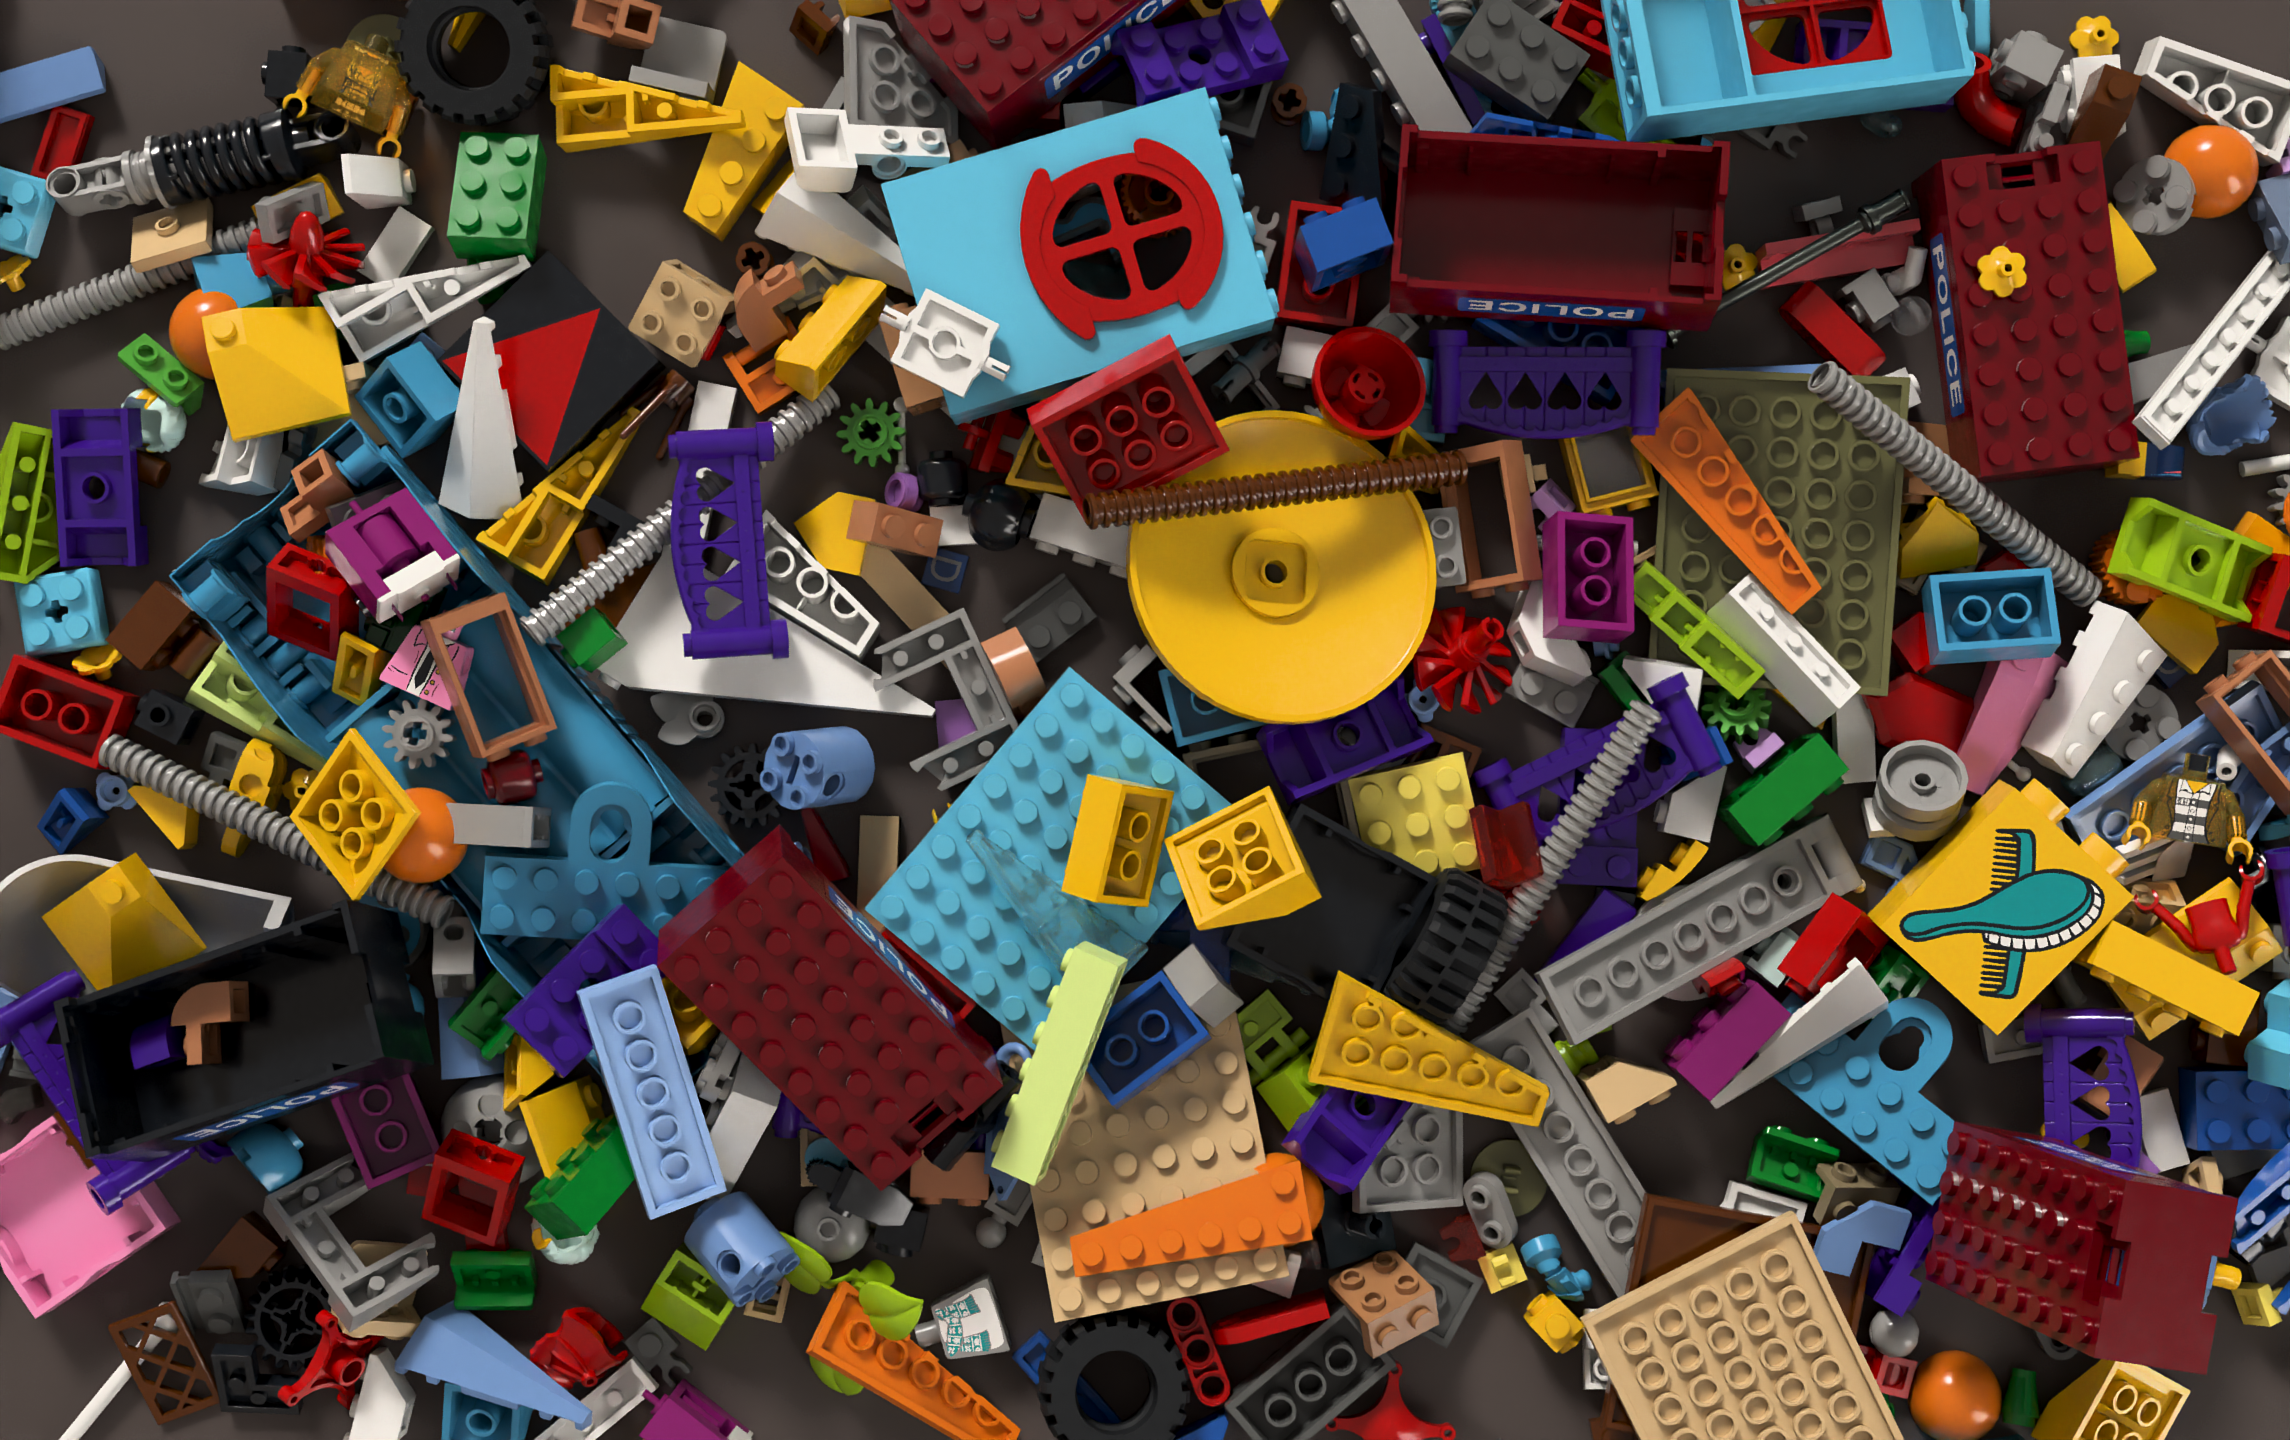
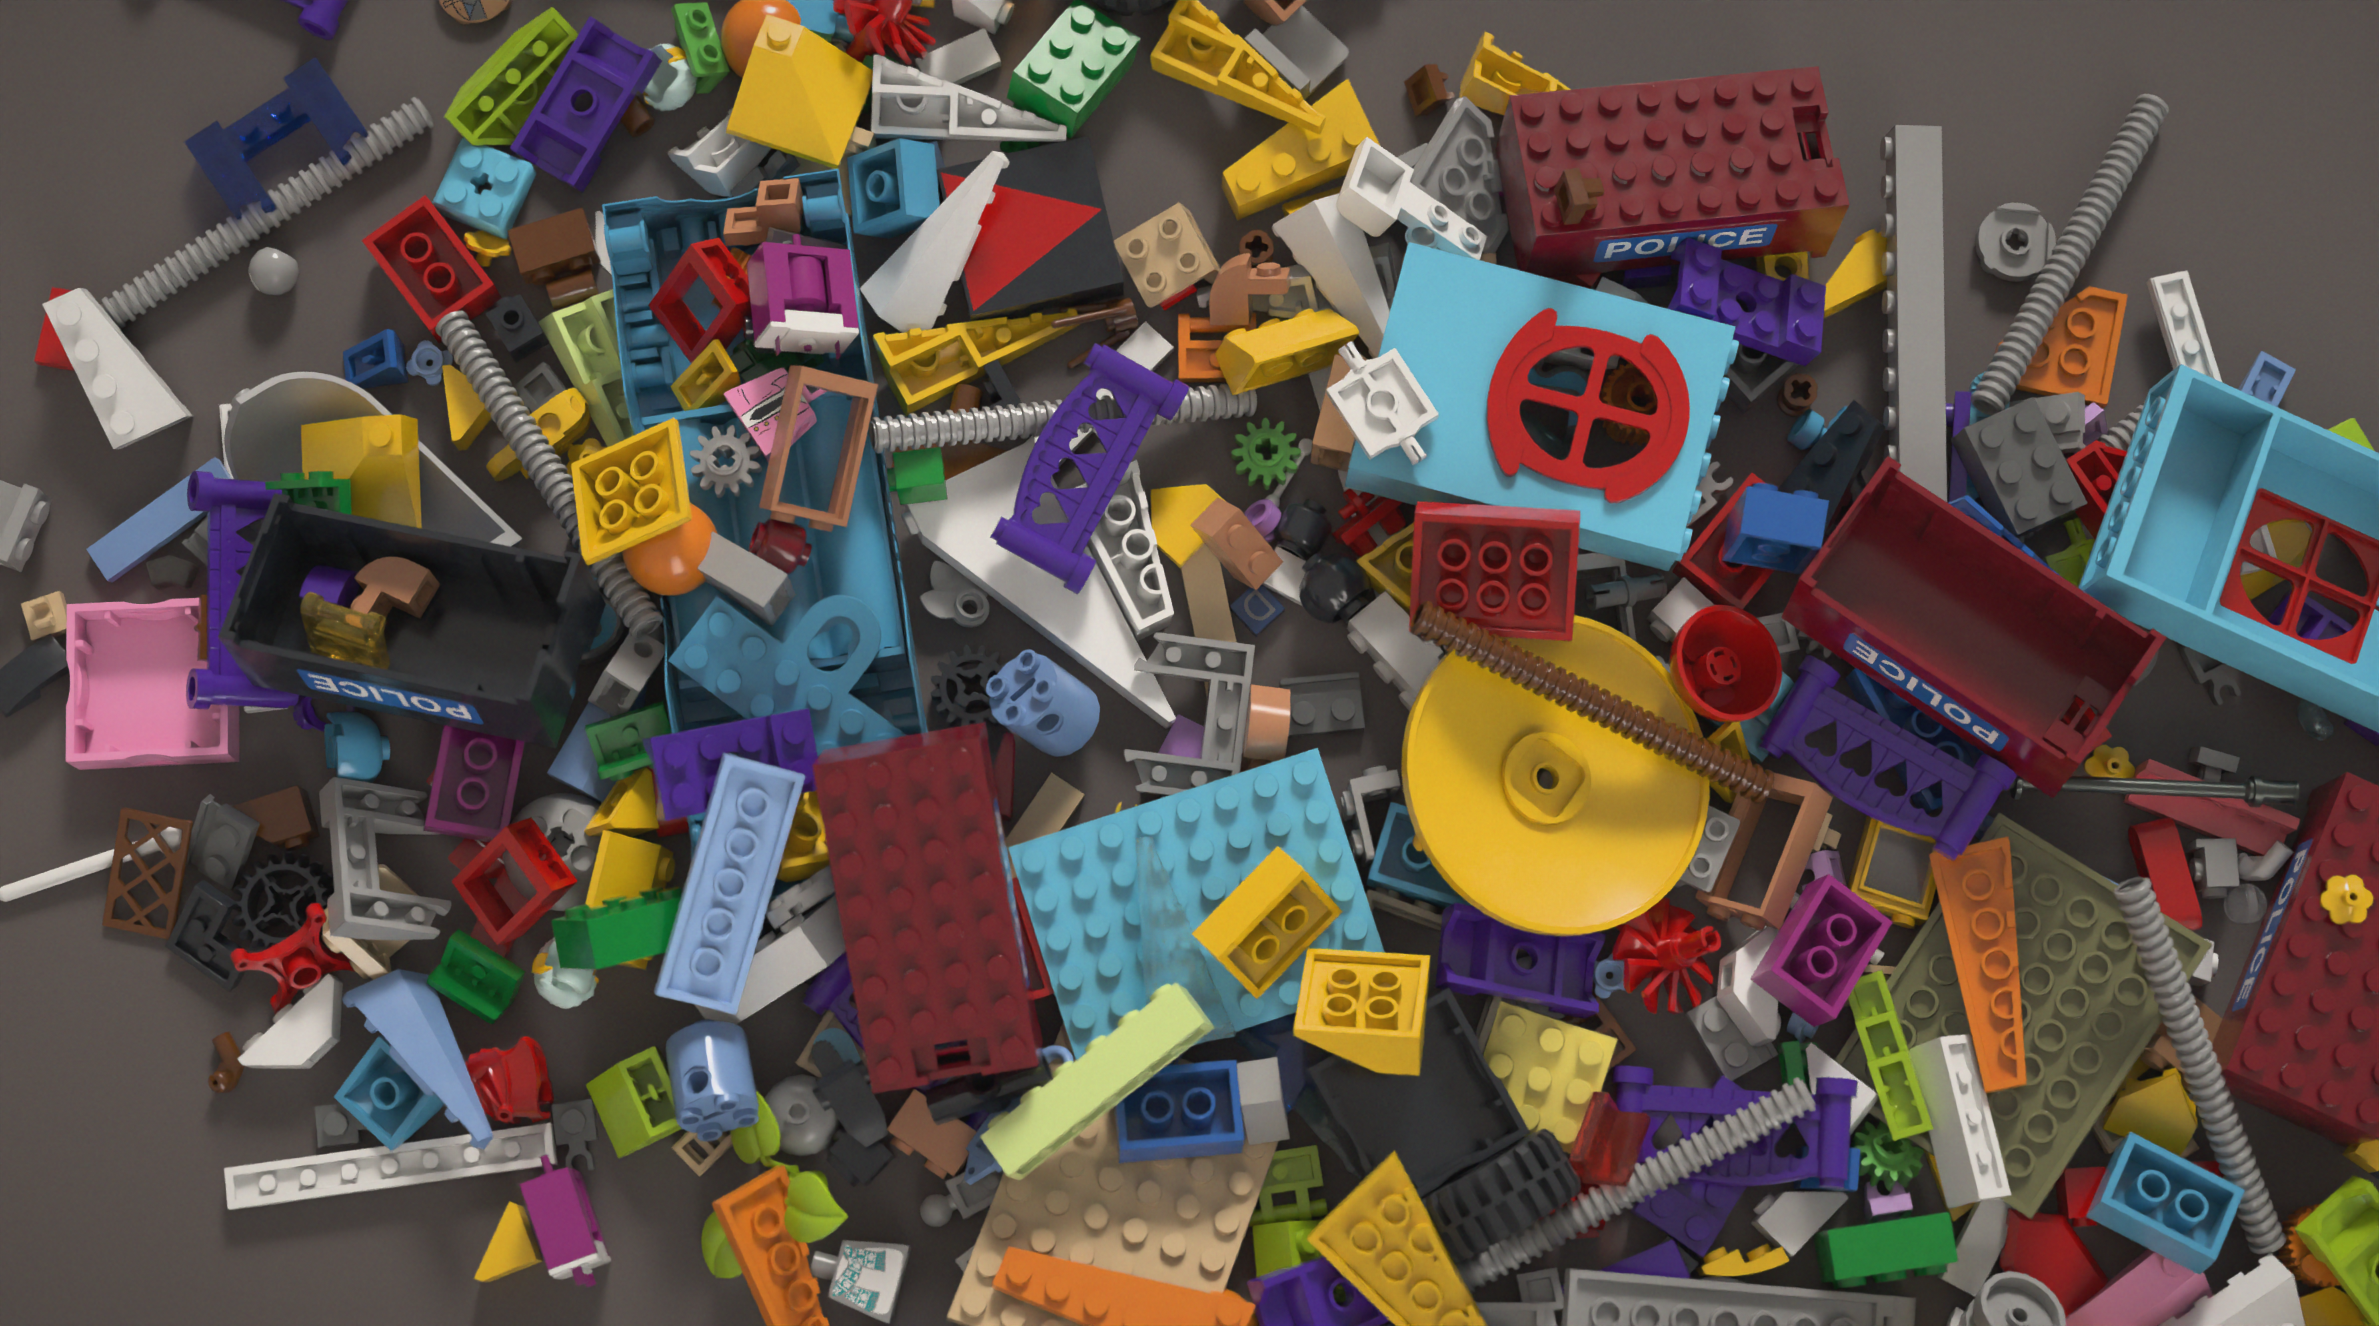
camera: 30 degrees right, 10 degrees down
(91, 972) = (318, 491): none -> green bracket
(194, 1078) = (342, 642): none -> clear yellow plate
(1000, 56) = (1576, 195): none -> reddish brown tile

